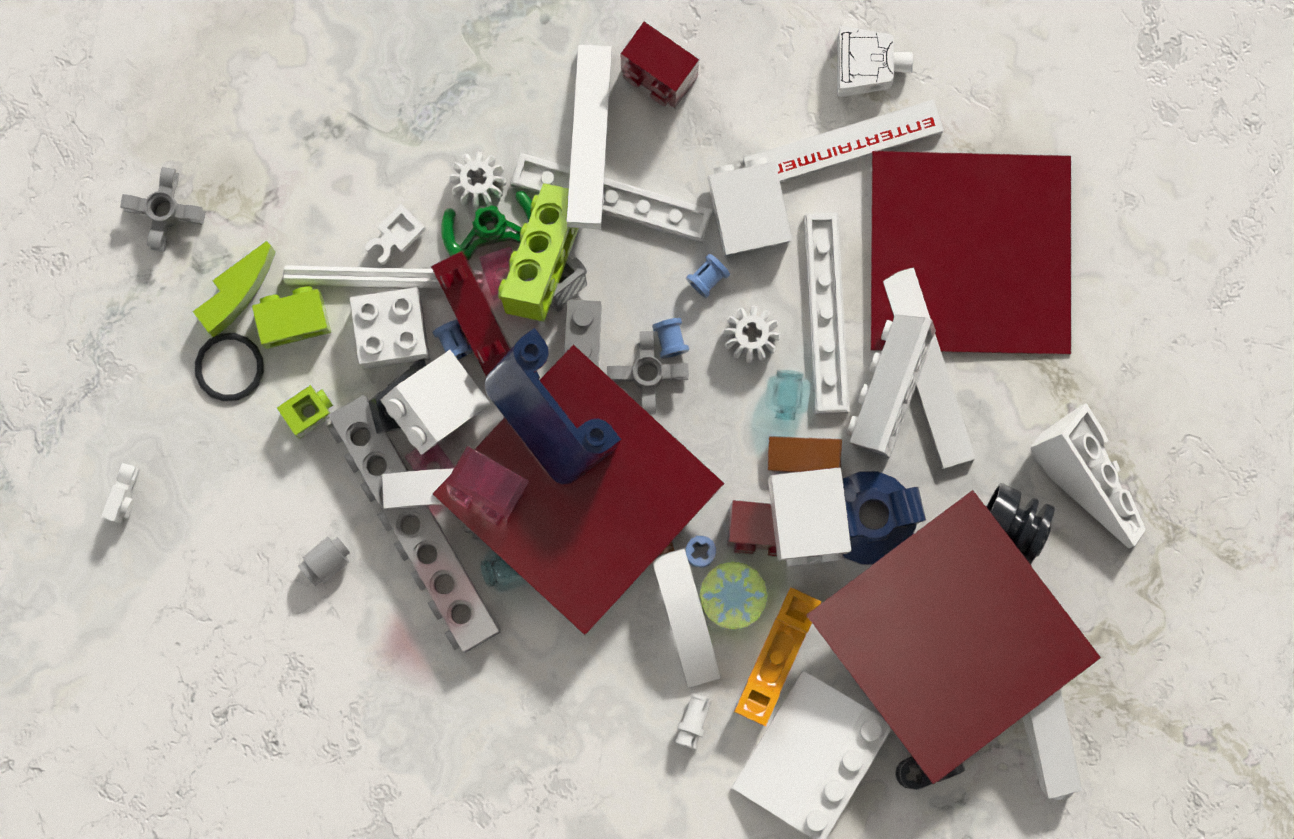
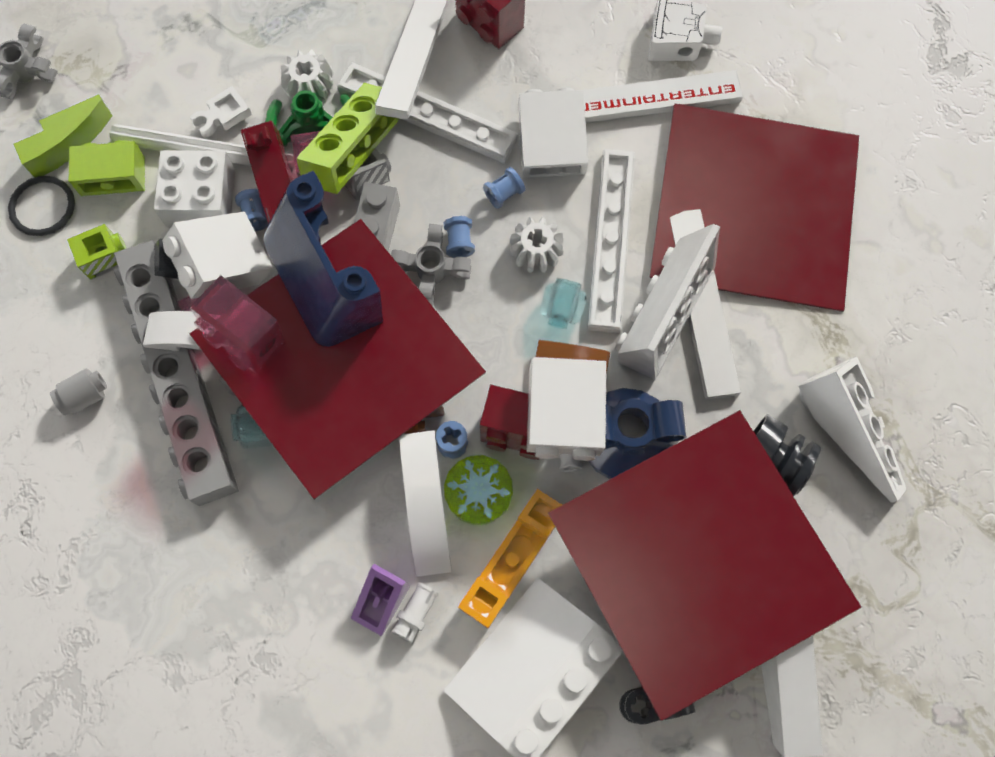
camera: 10 degrees right, 10 degrees down
(658, 716) = (379, 599): none -> medium lavender slope

